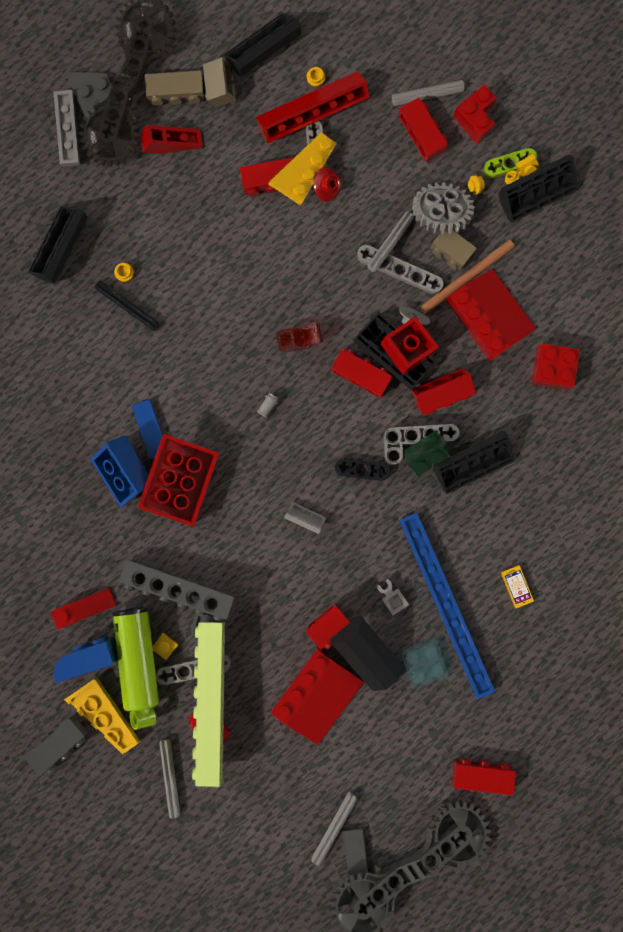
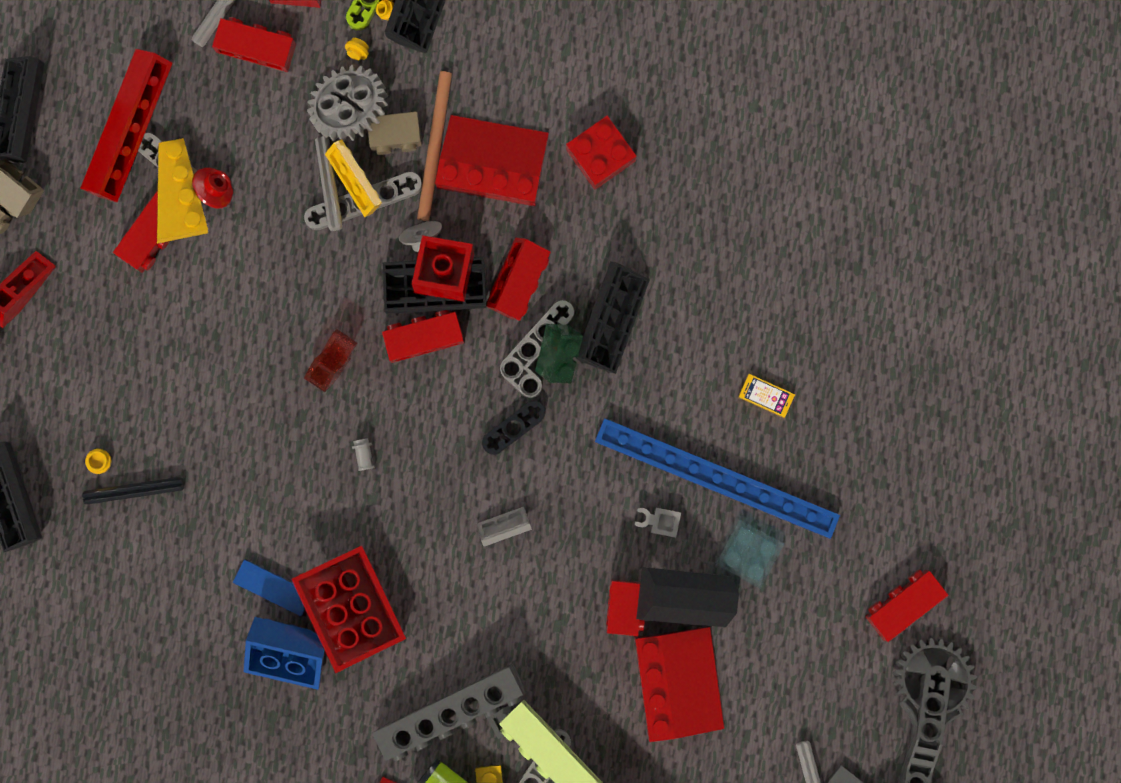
camera: 45 degrees left, 0 degrees up
(315, 76) = (99, 91): yellow plate -> none
(407, 250) = (353, 178): none -> yellow plate

